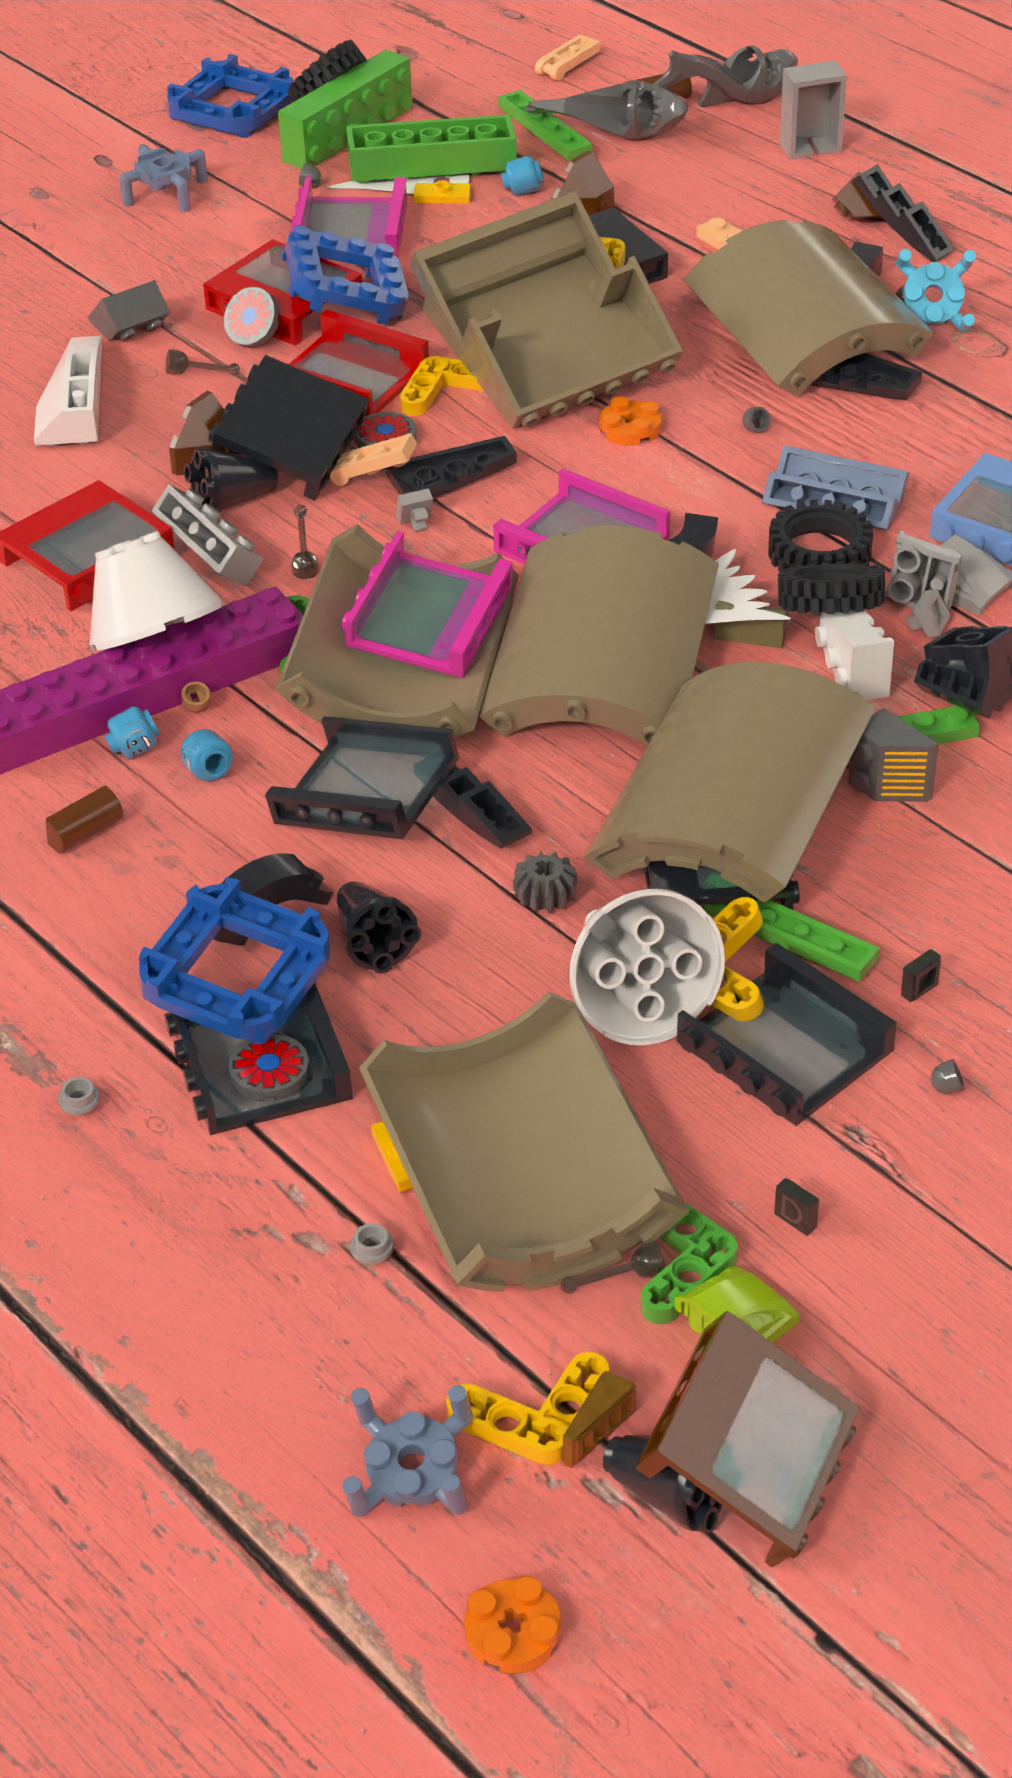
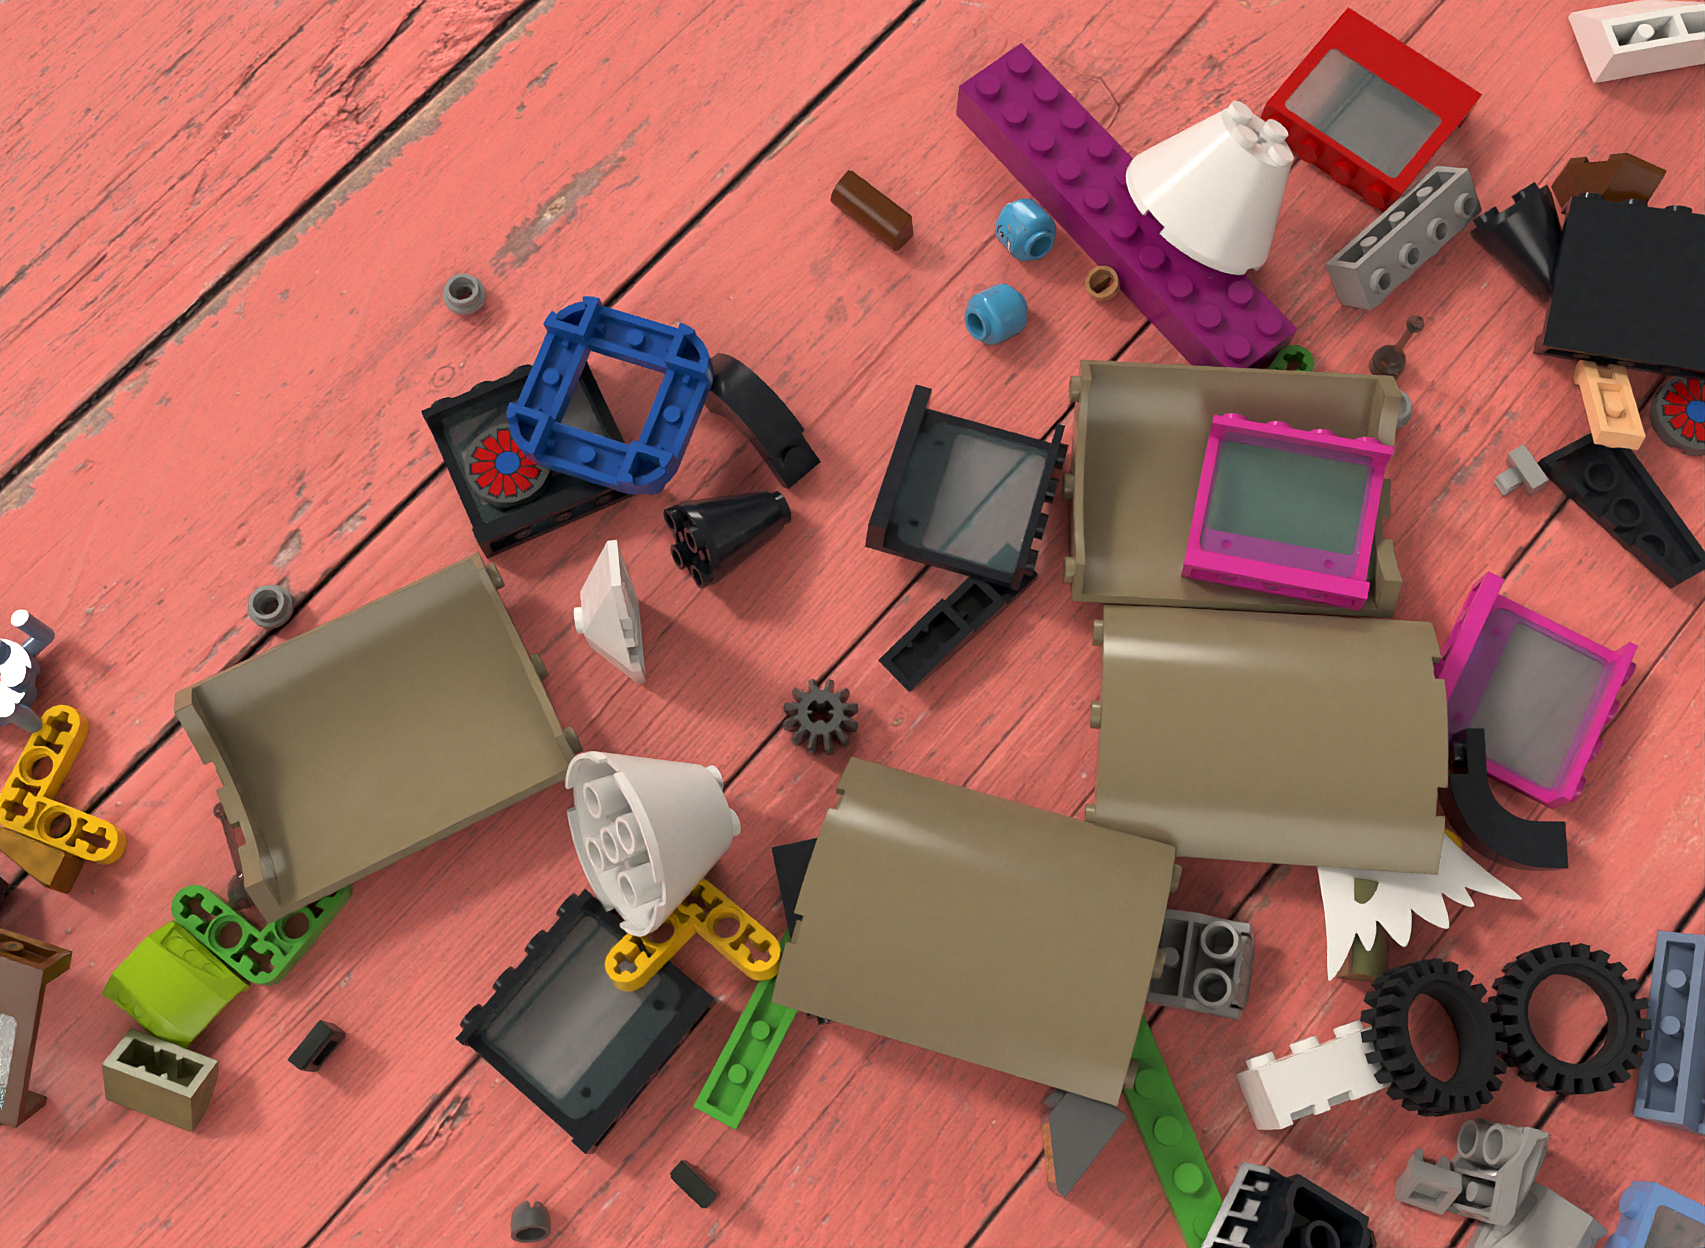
camera: 80 degrees right, 30 degrees up
(445, 970) = (612, 614): none -> white wedge
(820, 1319) = (160, 1079): none -> olive brick

